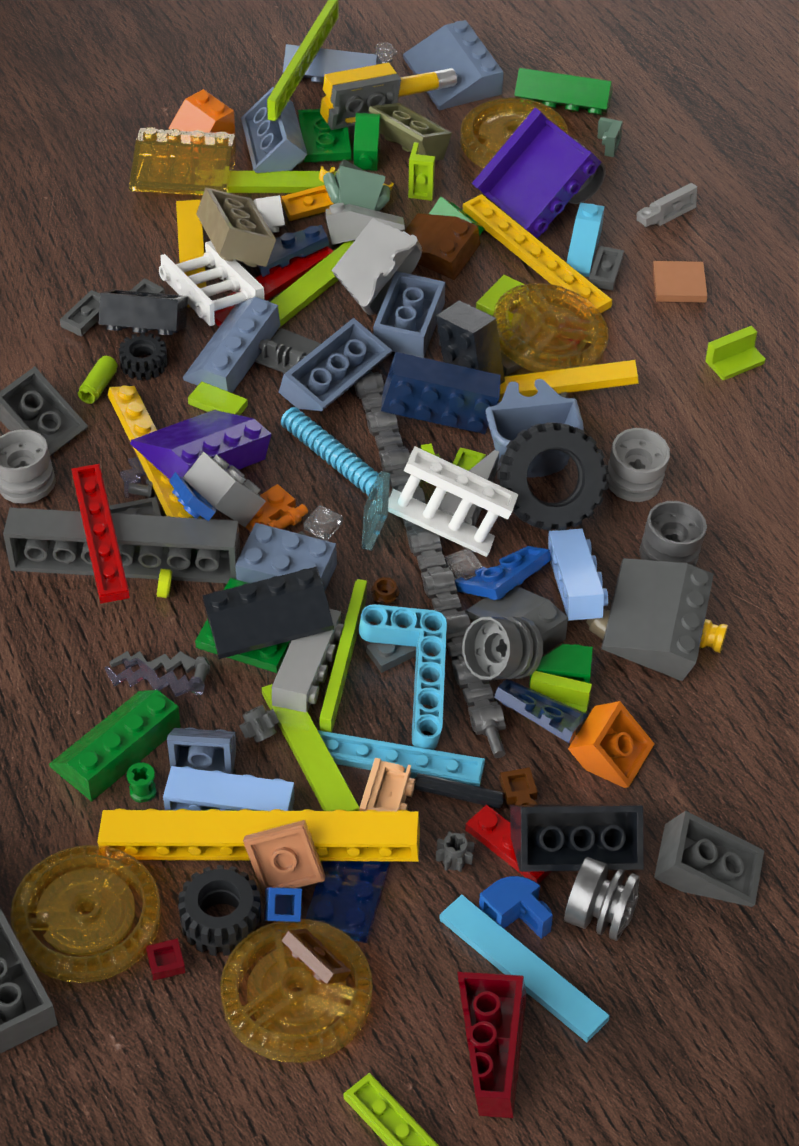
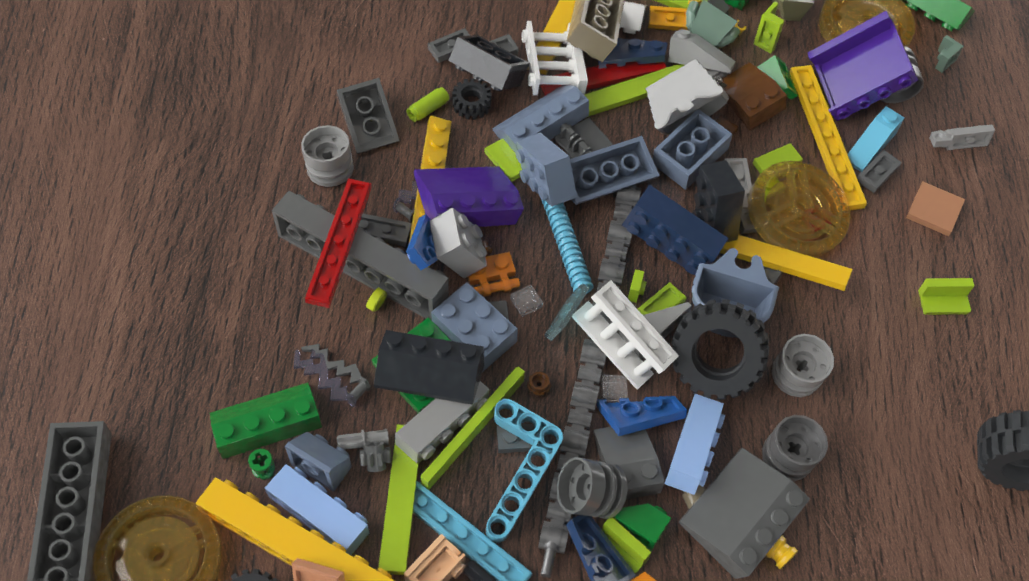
camera: 25 degrees right, 10 degrees up
(233, 715) = (358, 440): none -> light grey axle
(273, 385) = (546, 169): none -> sand blue brick

